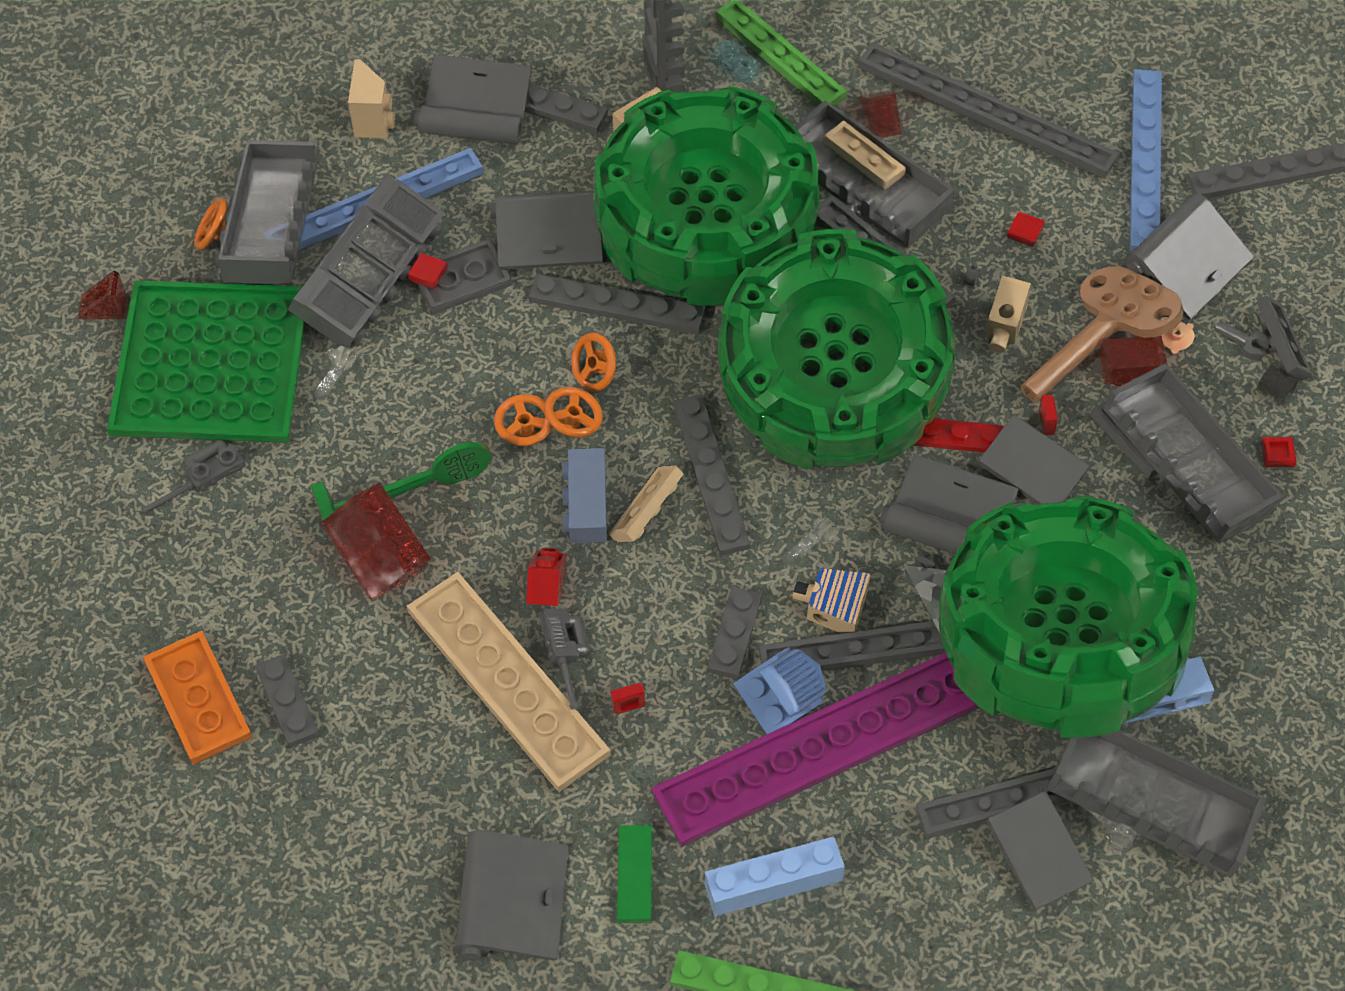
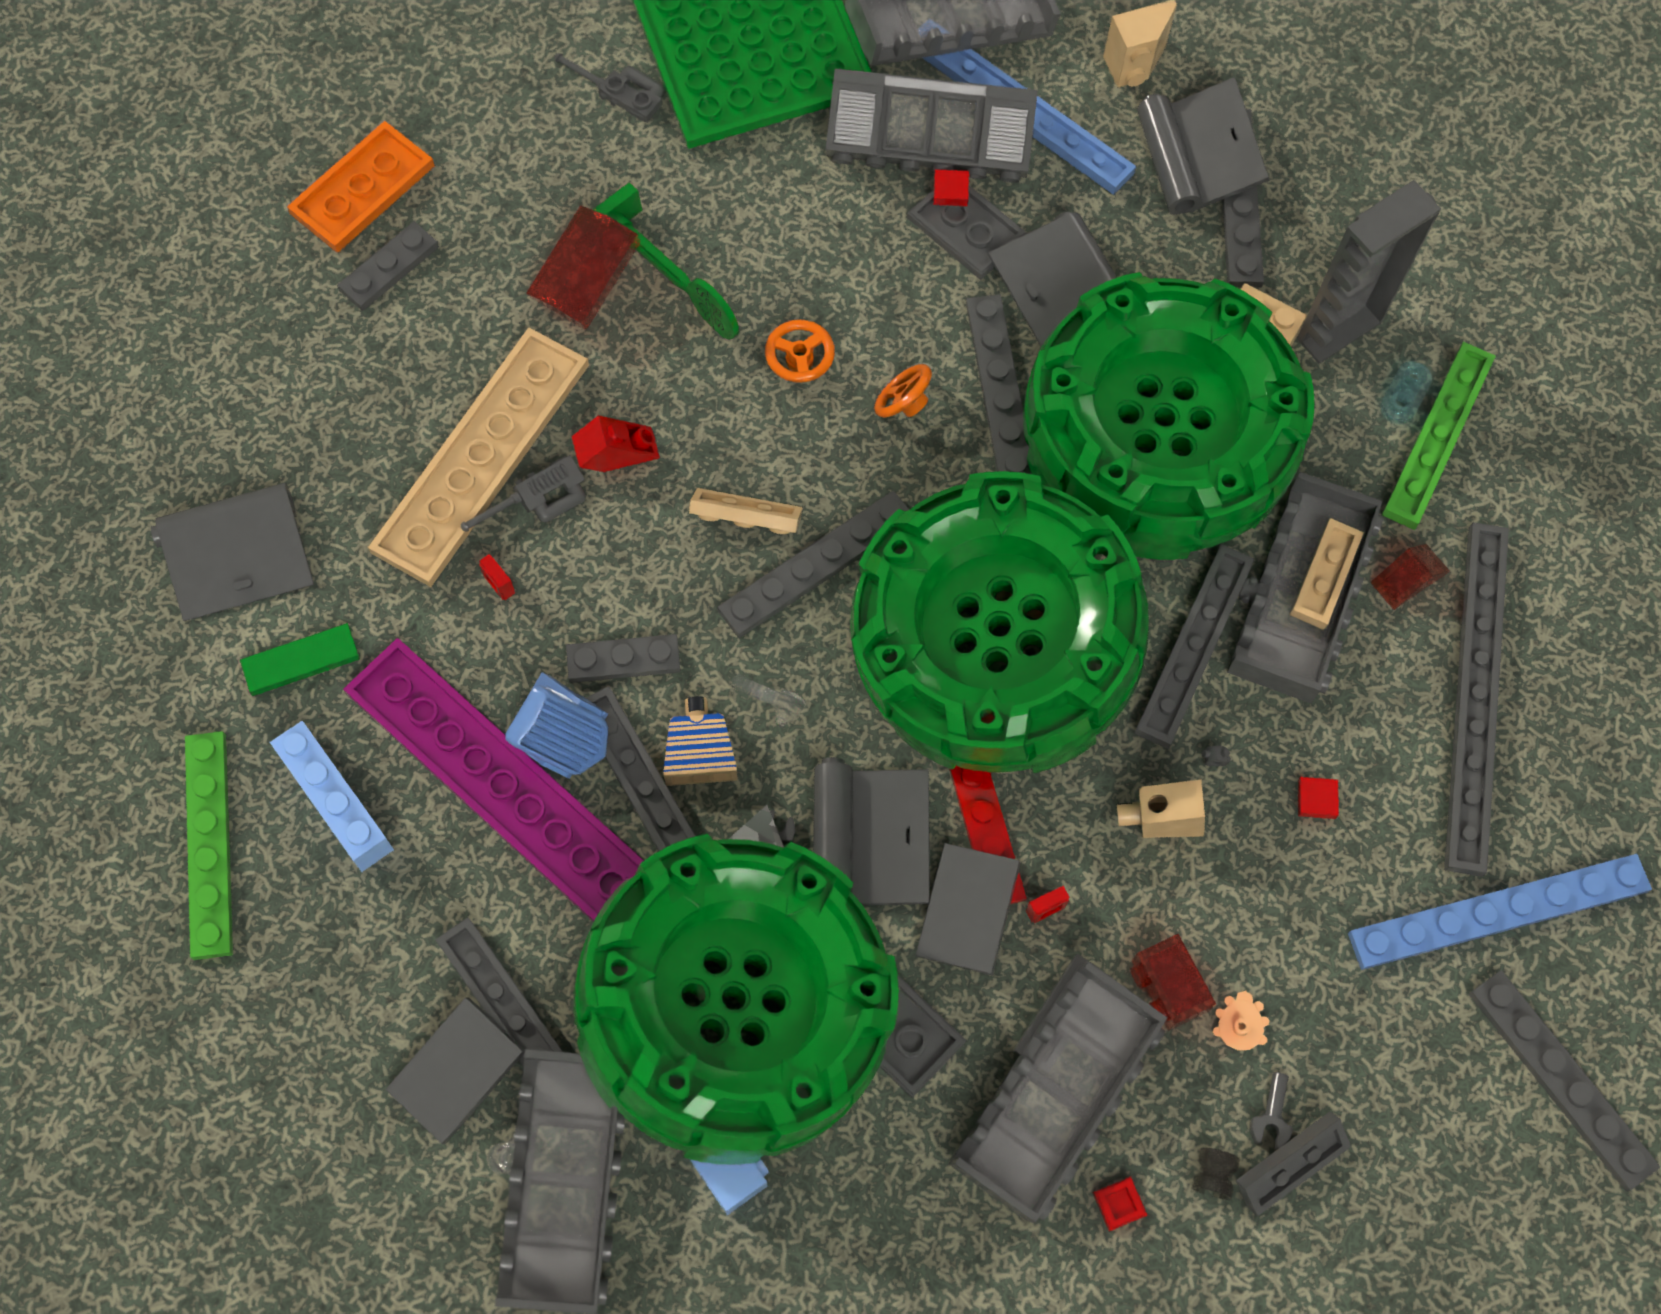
camera: 65 degrees right, 10 degrees up
(342, 360) = (806, 156): clear piece -> none
(570, 419) = (817, 400): orange piece -> none
(585, 495) = (731, 447): sand blue brick -> none
(1122, 304) = (1243, 948): medium nougat piece -> none
(1190, 249) = (1369, 1001): door -> none

